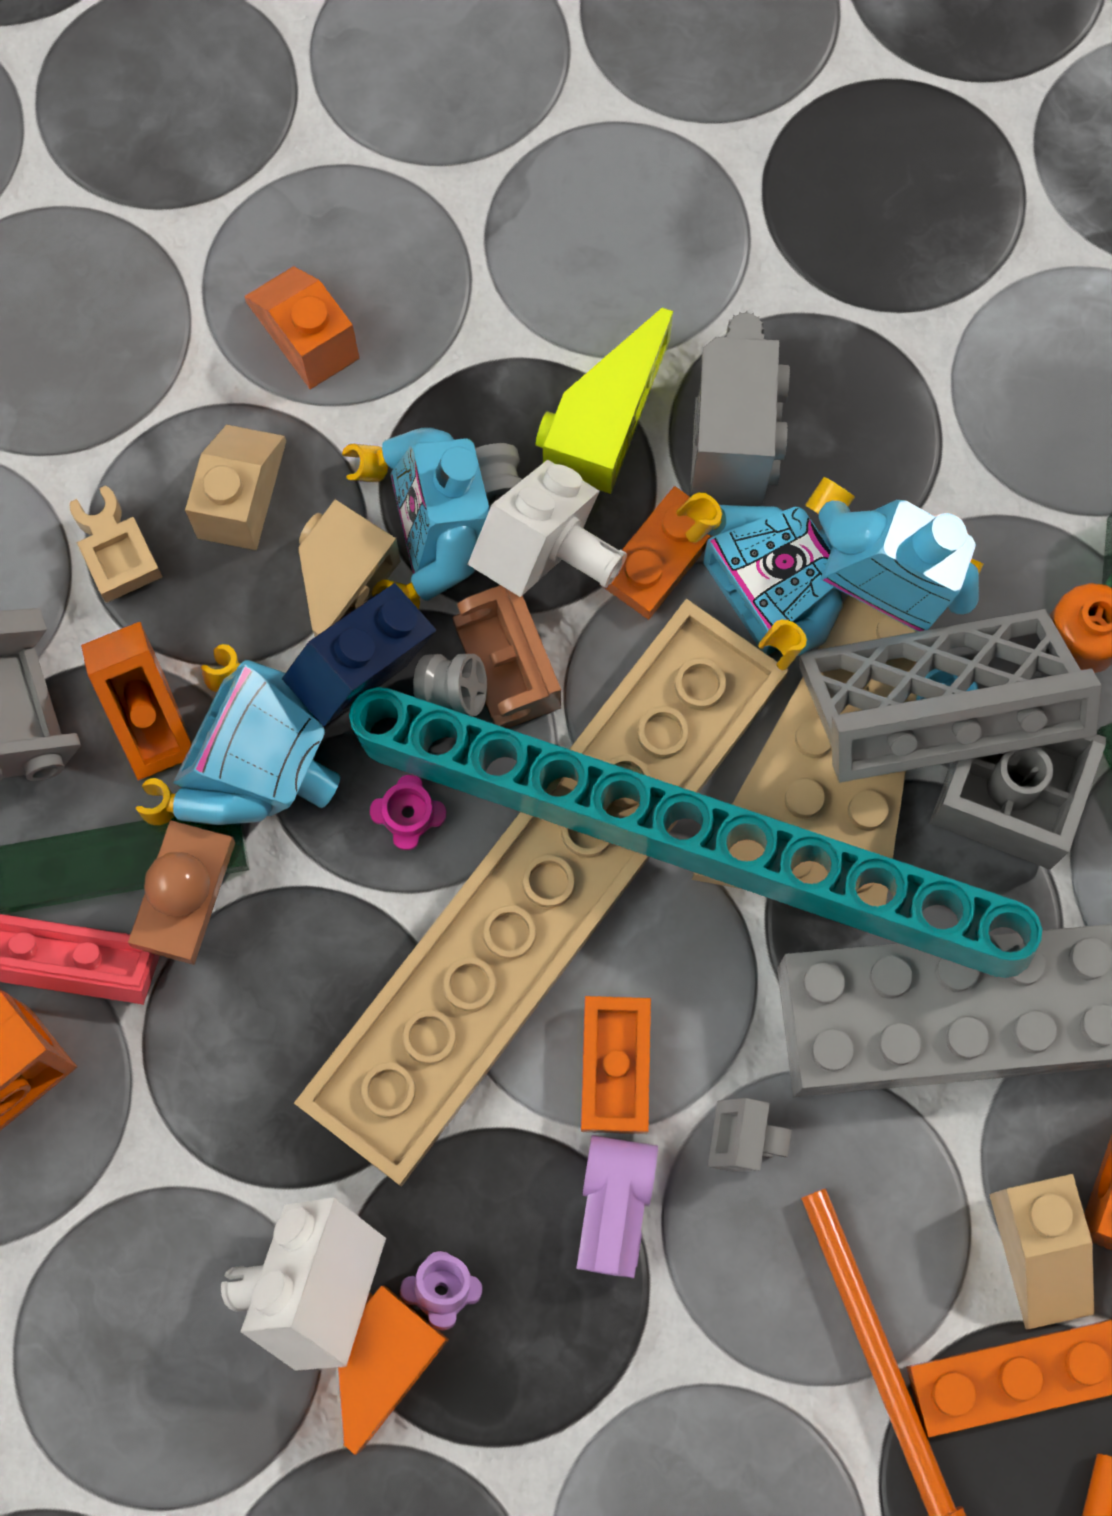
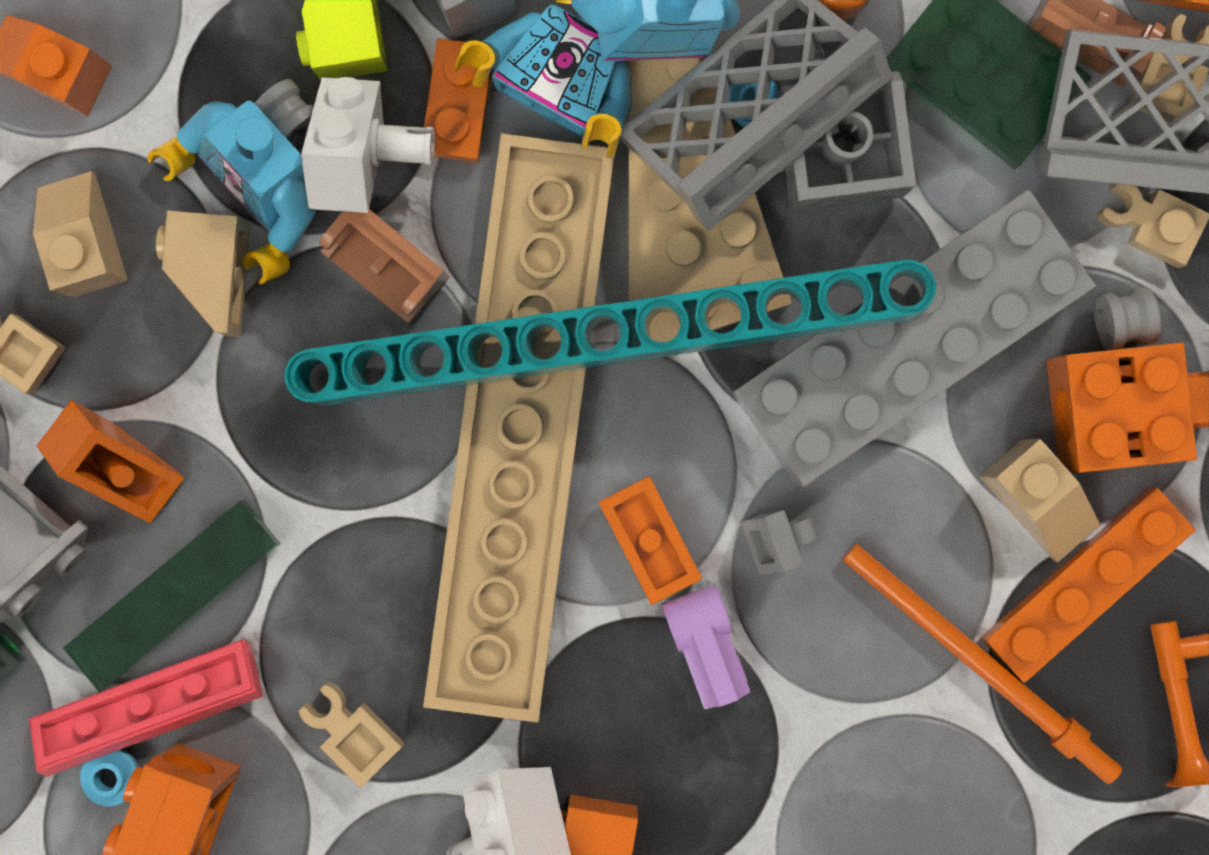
camera: 25 degrees left, 15 degrees up
(181, 892) = (239, 597): nougat tile -> none
(210, 1101) = (358, 741): none -> tan plate
(247, 753) = (223, 456): medium azure torso -> none
(358, 653) = (264, 331): dark blue brick -> none
(407, 793) = (362, 438): dark pink plate -> none
(445, 1271) = (604, 763): lavender plate -> none
(452, 683) = (352, 312): light grey wheel -> none

